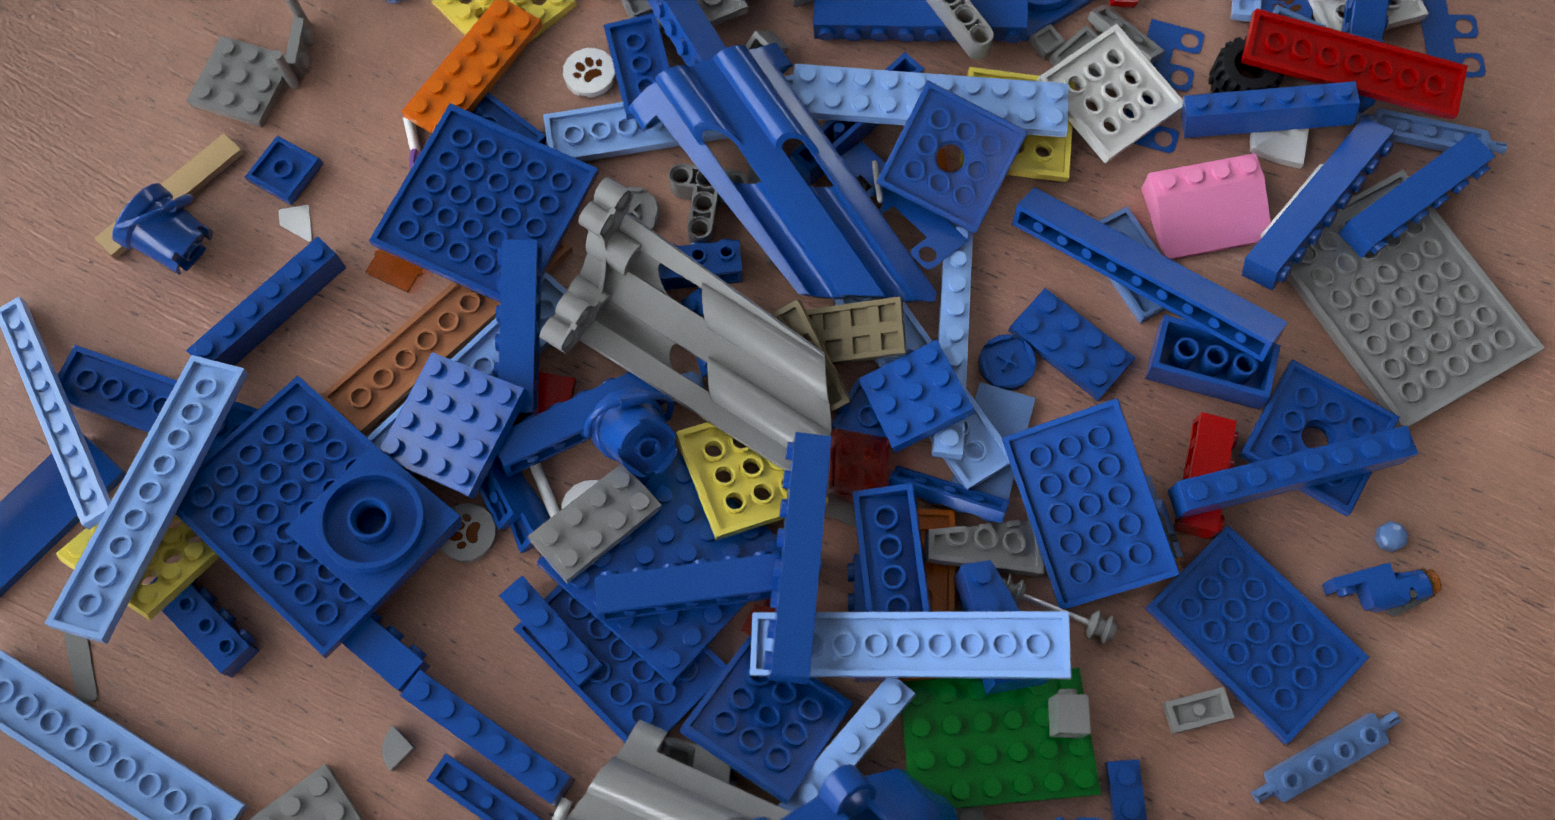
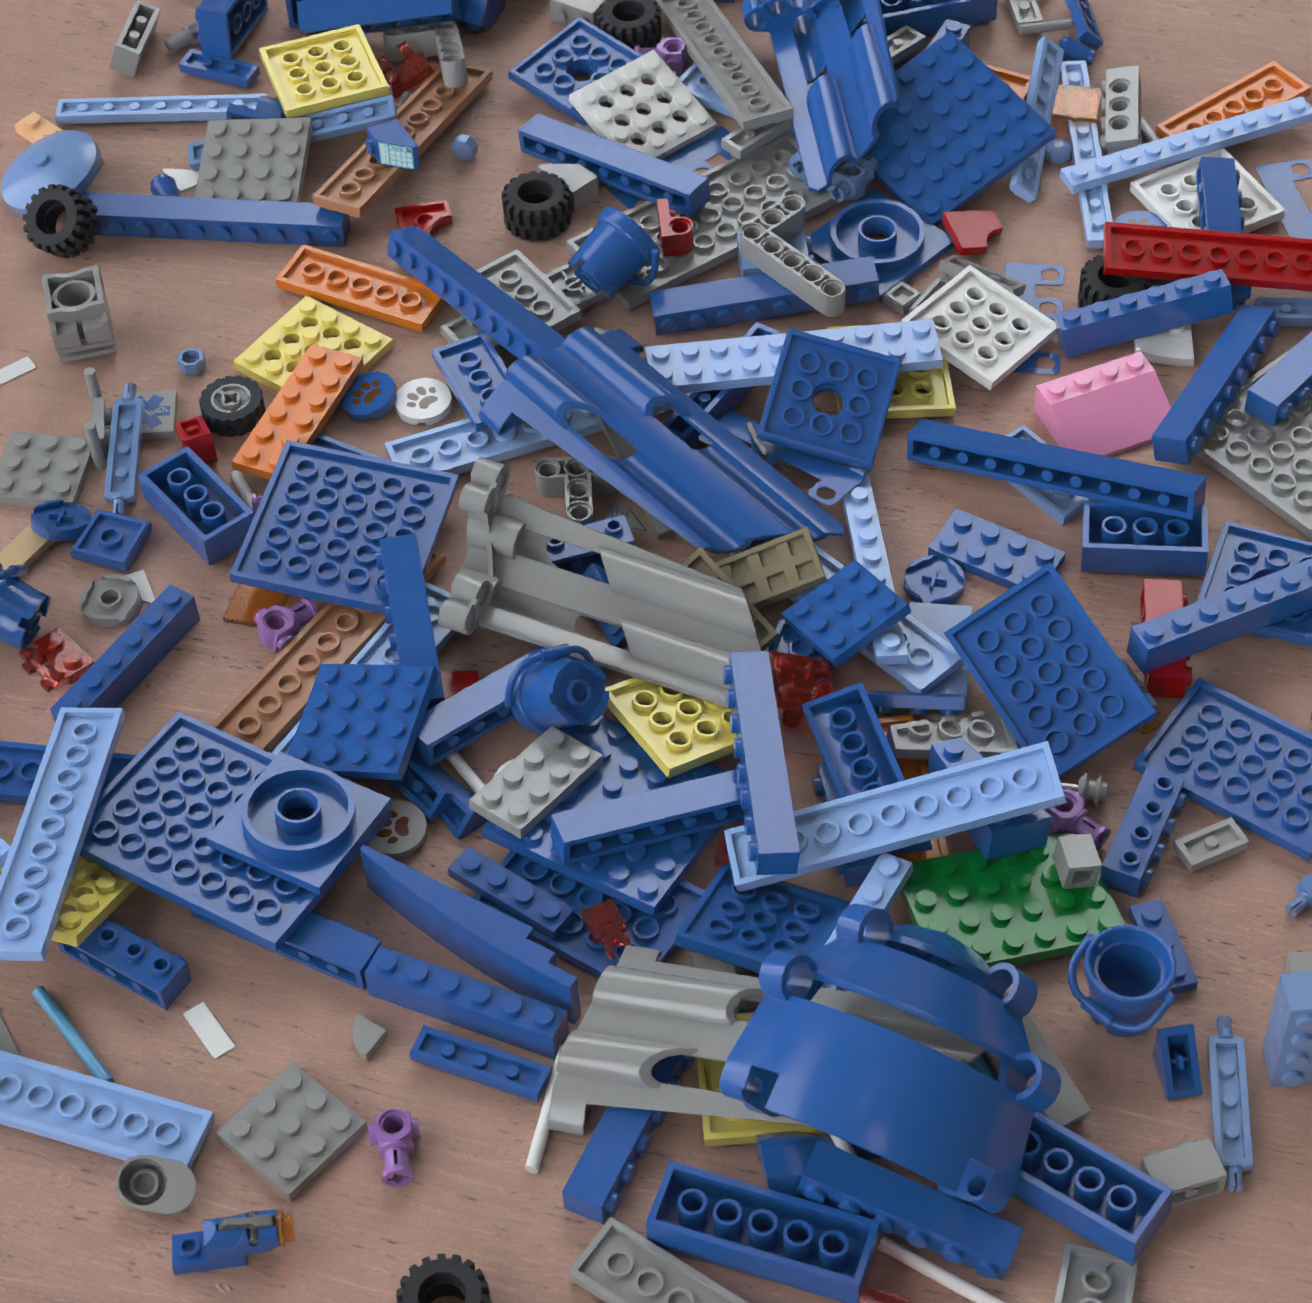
camera: 10 degrees left, 20 degrees down
(144, 691) = (71, 1034): none -> dark azure bar
(218, 283) = (64, 657): none -> clear red plate
(242, 140) = (59, 521): none -> blue tile
(263, 707) = (208, 1030): none -> white sticker
(277, 247) = (112, 614): none -> light grey tile
(312, 78) = (124, 450): none -> medium blue plate
(343, 40) = (159, 413): none -> light grey tile
(362, 150) = (197, 504): none -> blue brick
(377, 78) = (197, 437): none -> red plate
(415, 58) = (232, 405): none -> black wheel
(419, 291) = (285, 620): none -> medium lavender connector
(512, 677) = (473, 932): none -> blue slope
(542, 59) = (370, 396): none -> blue tile
(626, 683) = (606, 925): none -> clear red plate
(737, 231) = (632, 518): none -> light grey sticker
(1081, 660) = (1075, 819): none -> medium lavender connector
(1137, 685) = (1142, 832): none -> blue brick

